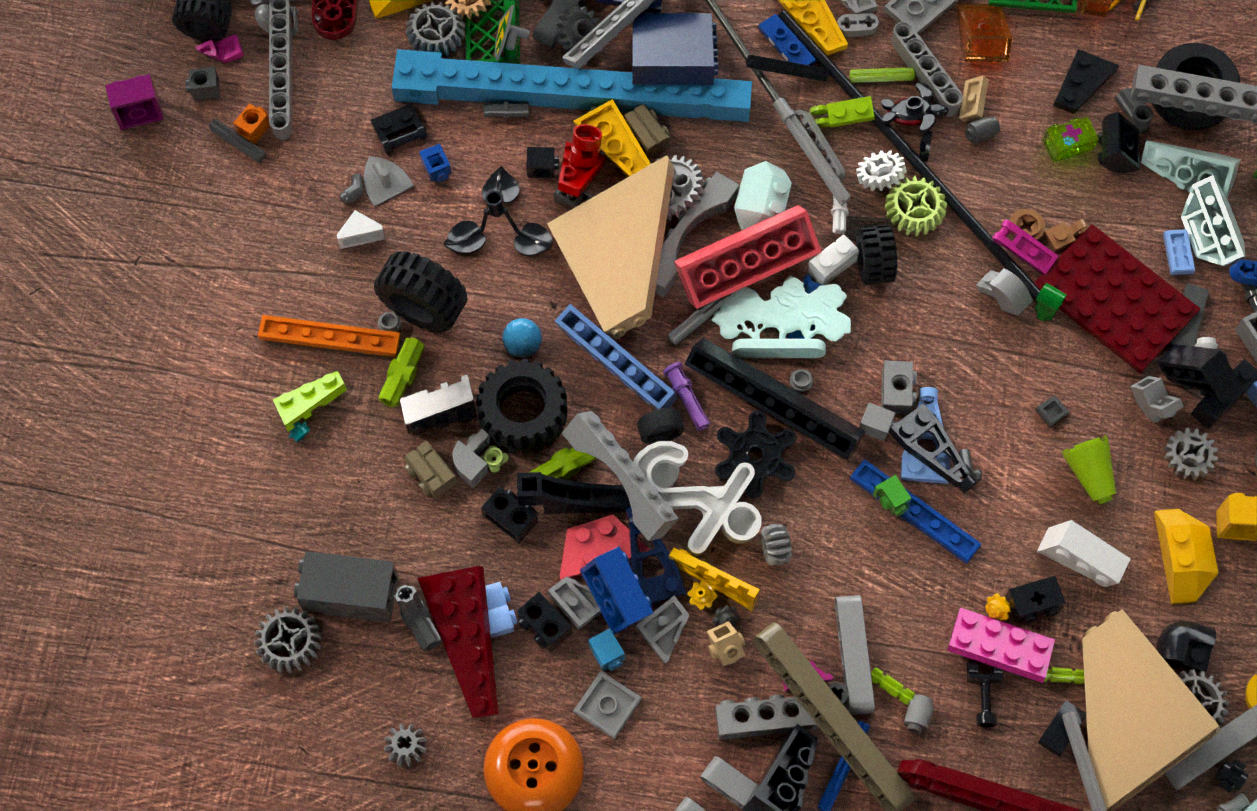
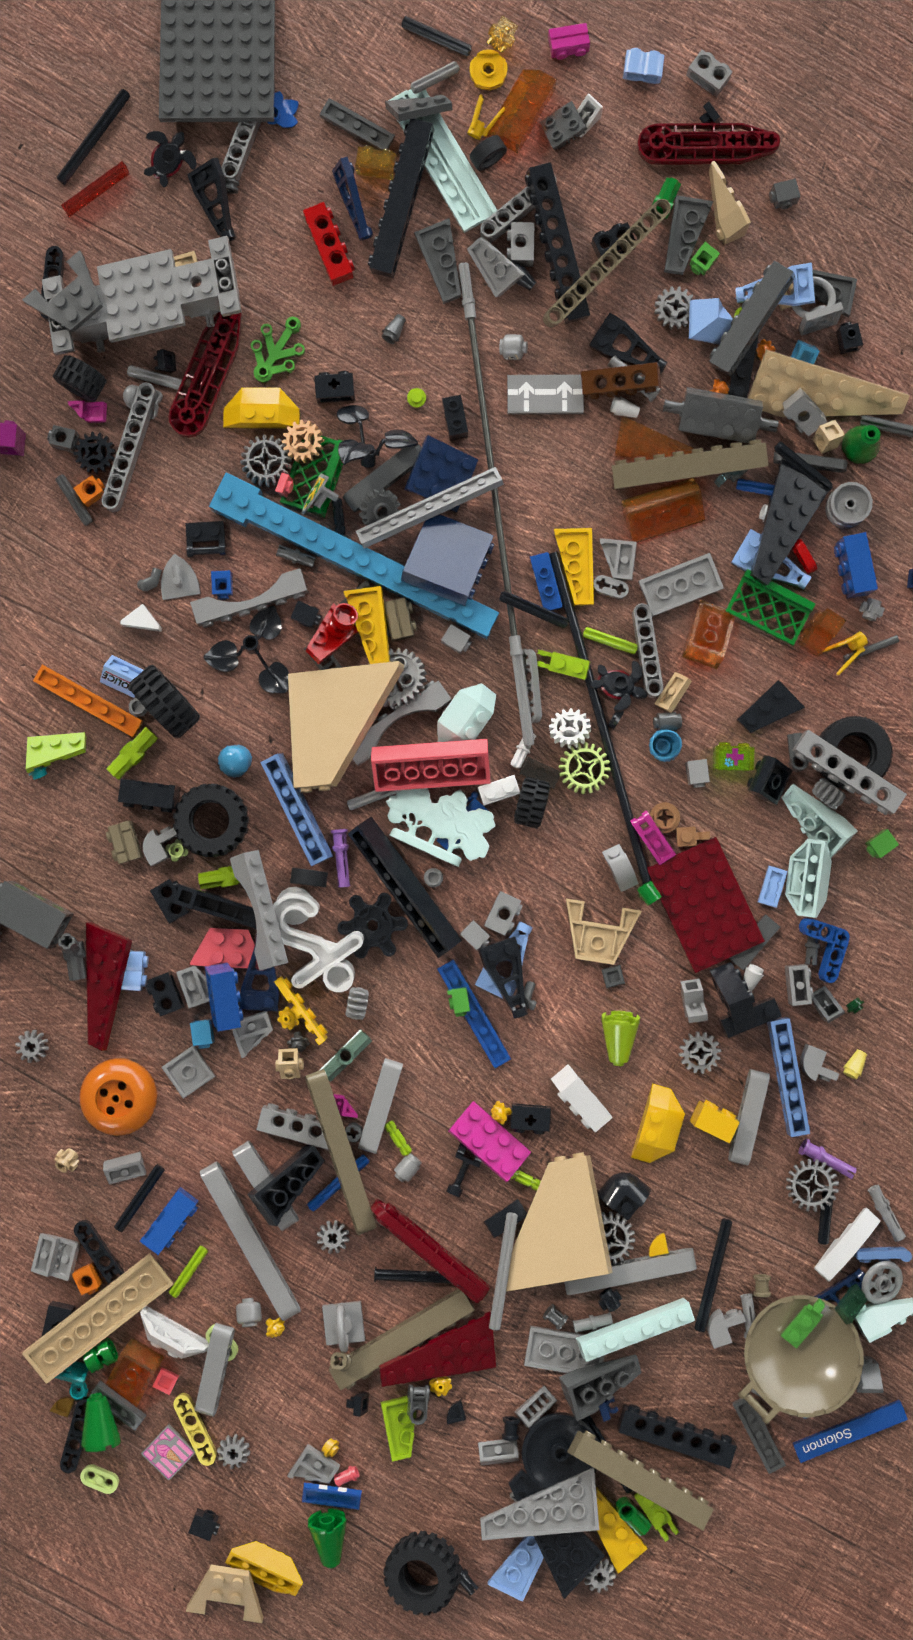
camera: 20 degrees right, 20 degrees up
(243, 85) = (89, 459): none -> black gear
(357, 298) = (119, 674): none -> light blue panel
(436, 192) = (287, 586): none -> light grey arch
(466, 43) = (285, 485): none -> coral plate
(533, 53) = (338, 517): none -> black axle
(716, 129) = (456, 639): none -> light grey brick
(793, 598) = (354, 1046): none -> sand green piece
(992, 149) = (665, 745): none -> dark azure hair
(1014, 378) = (596, 940): none -> tan wing
(1039, 167) = (697, 773): none -> light grey brick
(1189, 134) = (828, 793): none -> light grey gear

